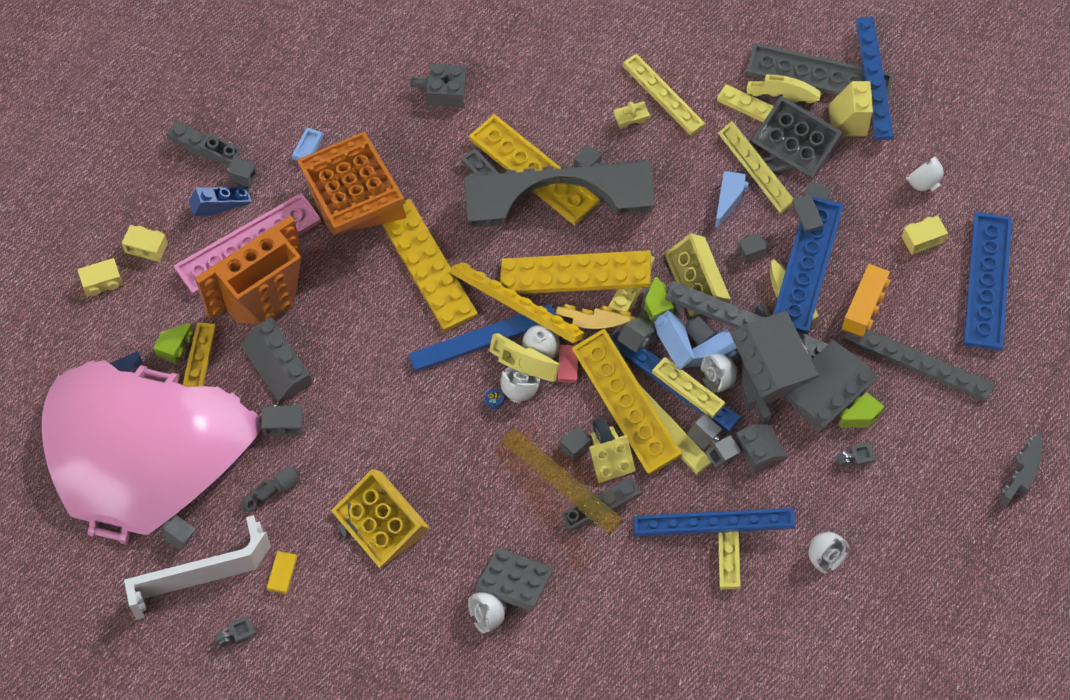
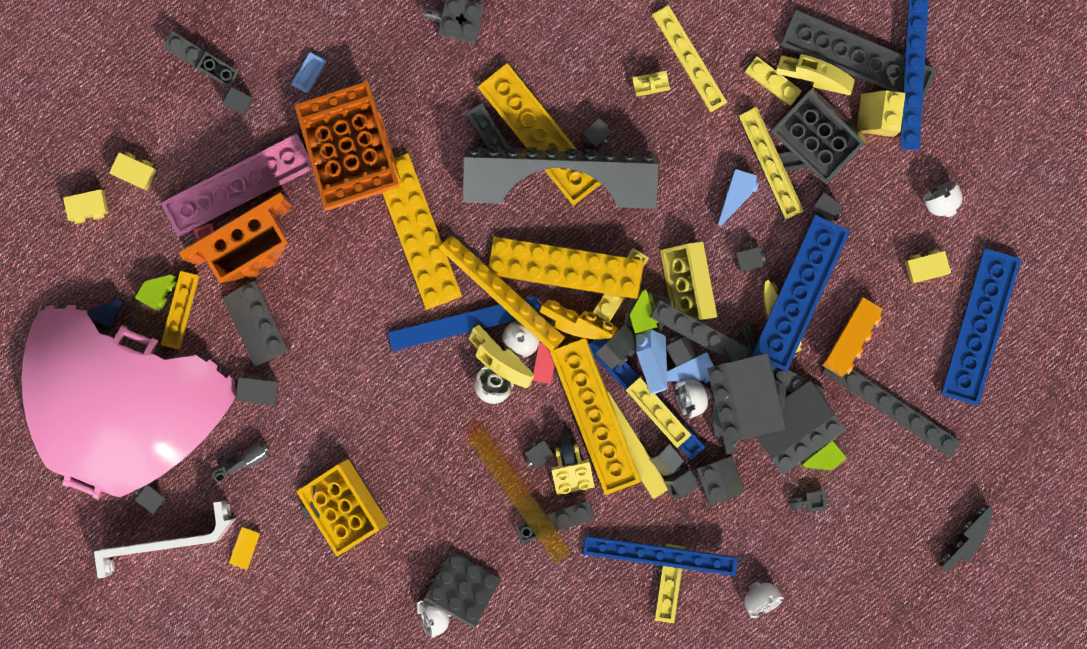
camera: 10 degrees right, 25 degrees up
(217, 199) = (212, 129): blue slope -> none
(239, 629) = (200, 602): dark grey plate -> none
(494, 398) = (466, 392): blue tile -> none
(807, 213) = (810, 239): dark grey tile -> none

